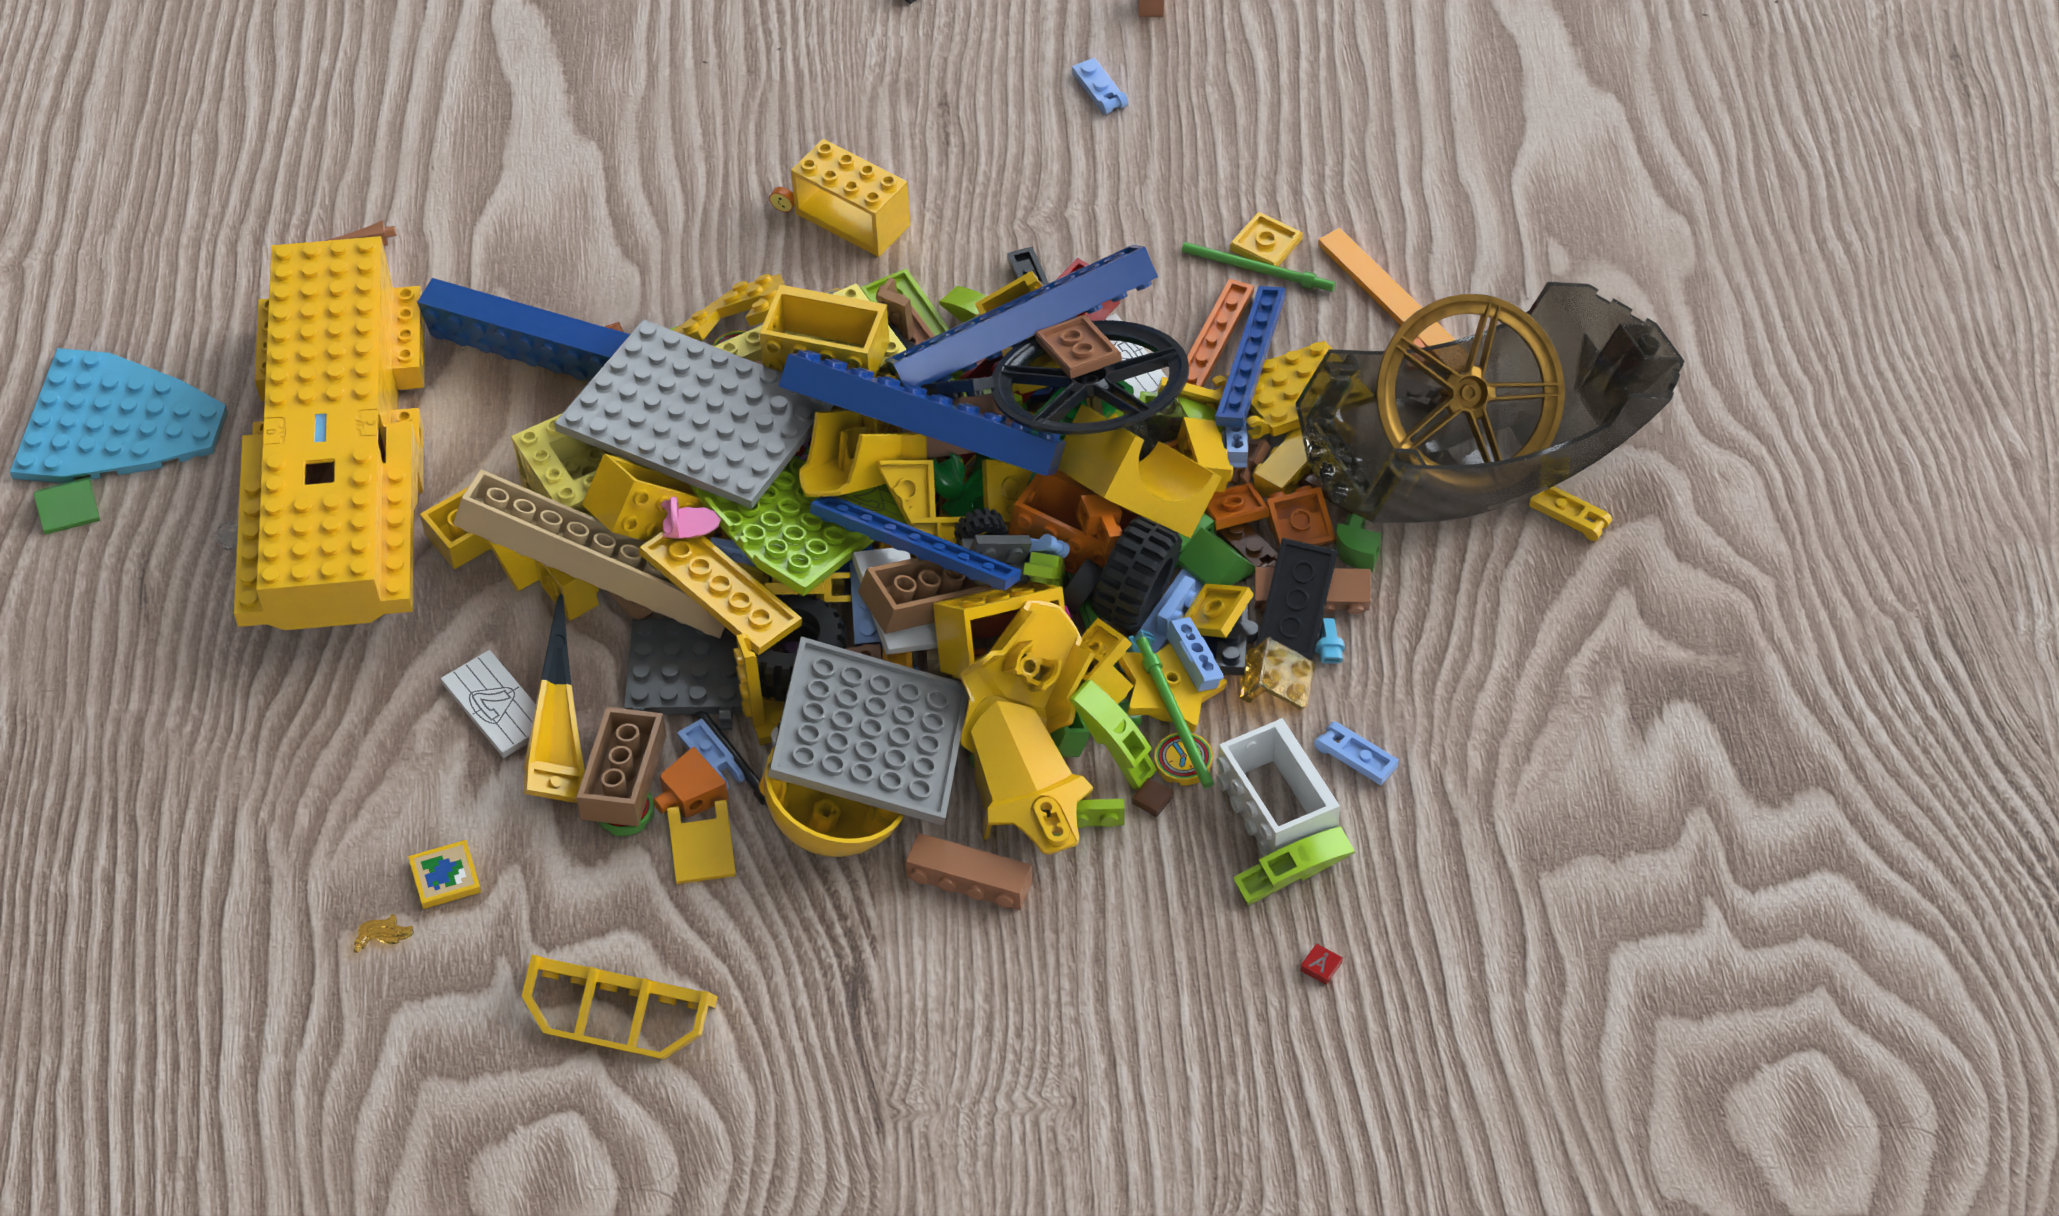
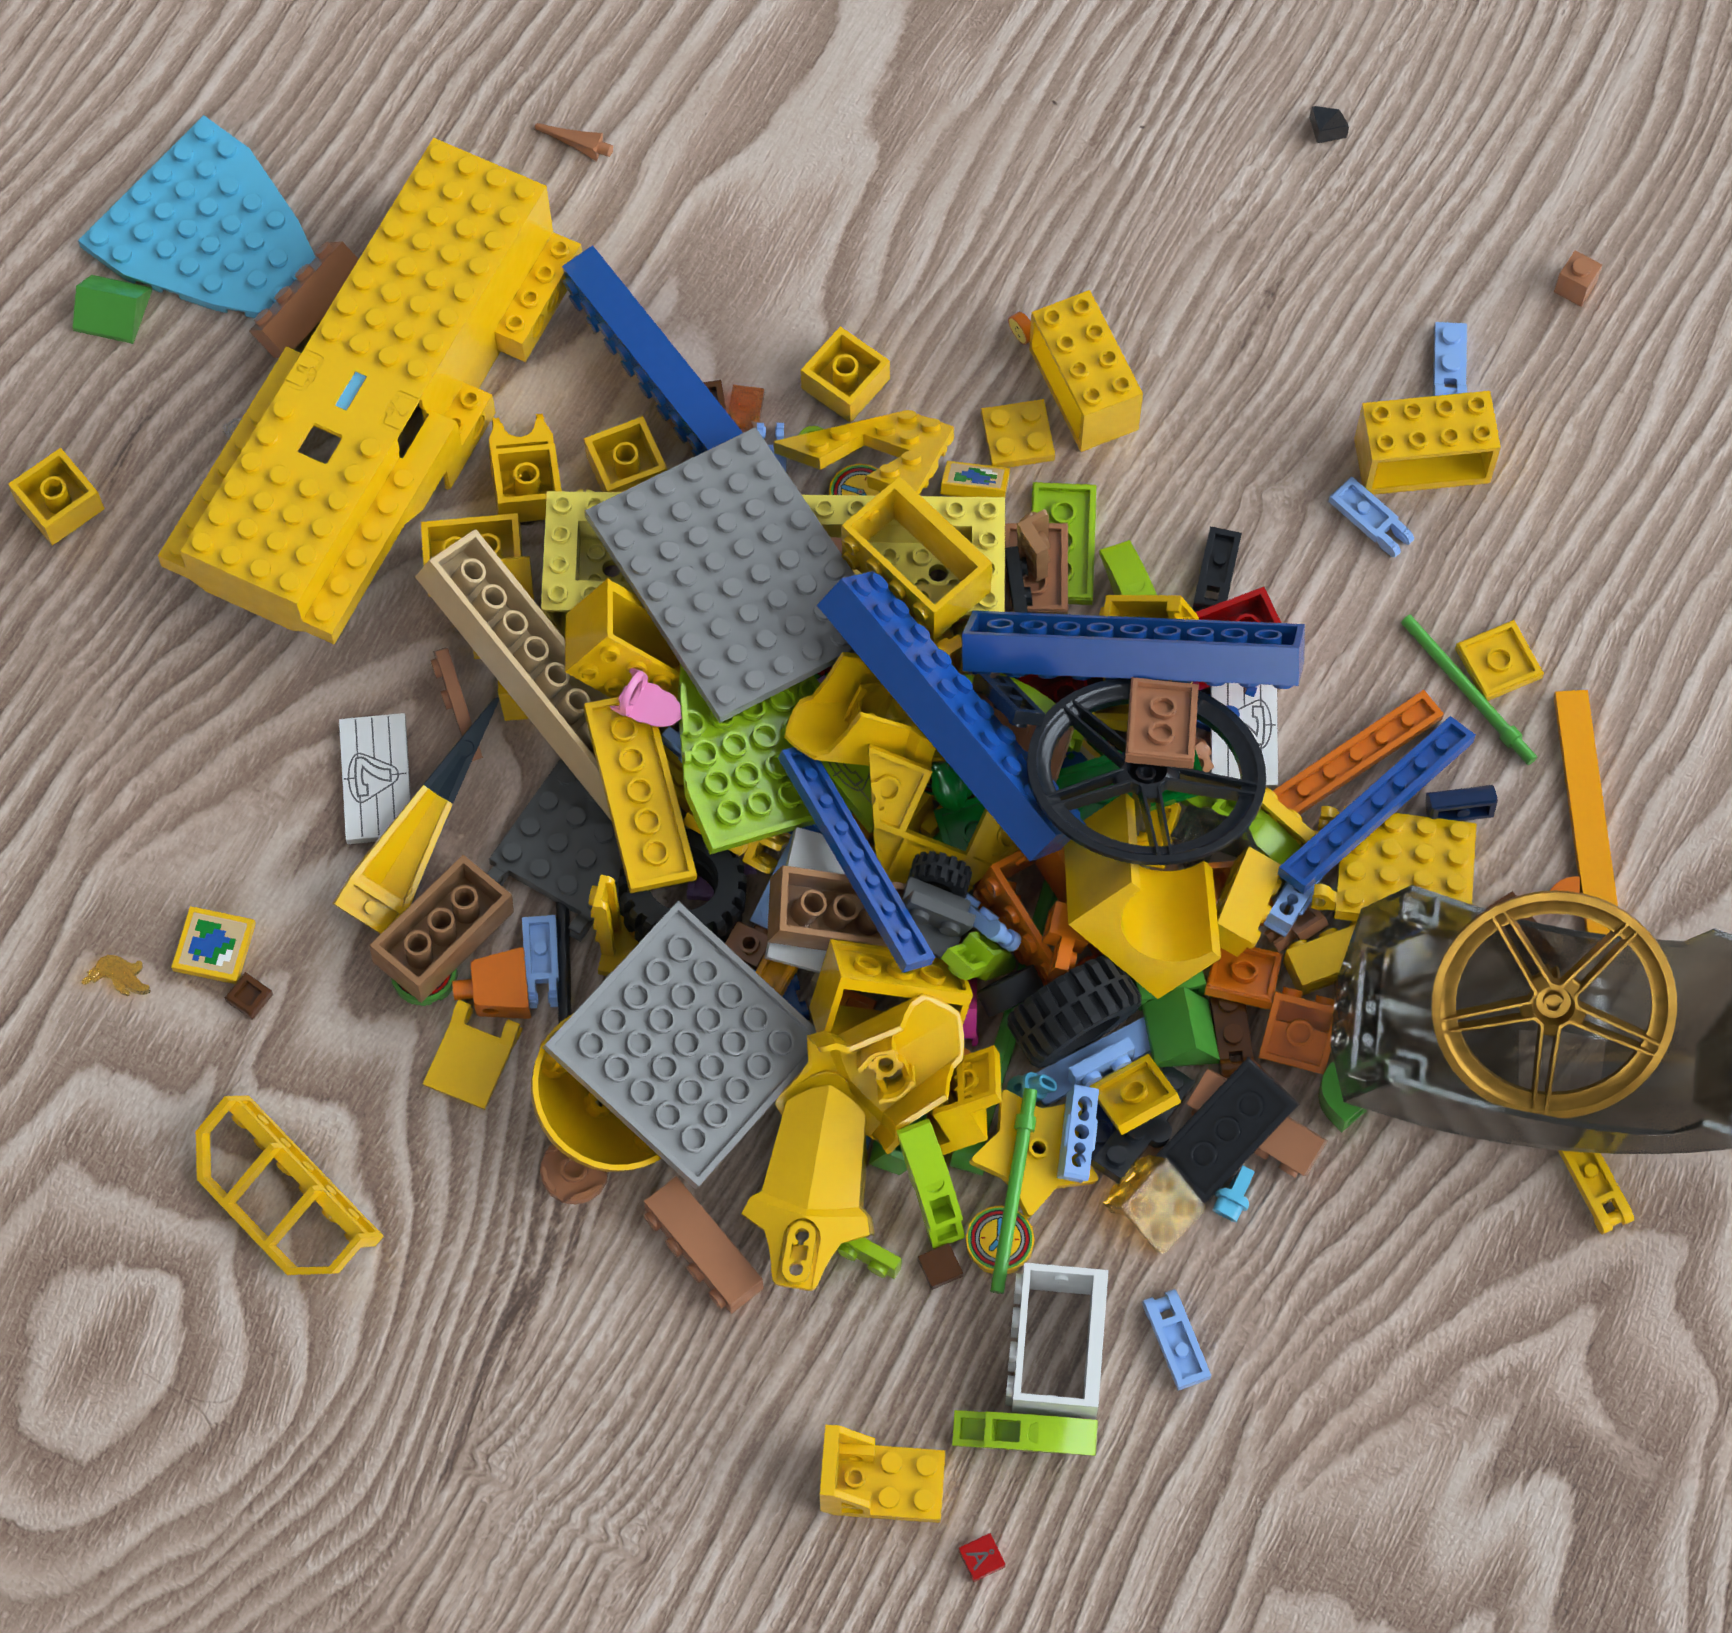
camera: 30 degrees right, 15 degrees up
(110, 638) = (56, 496): none -> yellow brick
(225, 422) = (306, 300): none -> nougat brick
(474, 447) = (523, 470): none -> yellow brick
(496, 893) = (248, 996): none -> reddish brown tile
(513, 610) = (453, 695): none -> nougat wing
(541, 401) = (624, 456): none -> yellow brick
(674, 282) = (845, 374): none -> yellow brick
(826, 265) = (1018, 434): none -> yellow plate
(834, 879) = (569, 1180): none -> nougat tile
(1115, 197) = (1370, 515): none -> light blue hinge
(1122, 130) = (1427, 442): none -> yellow hose
(1209, 955) = (879, 1480): none -> yellow bracket
(1310, 330) = (1462, 803): none -> dark blue brick

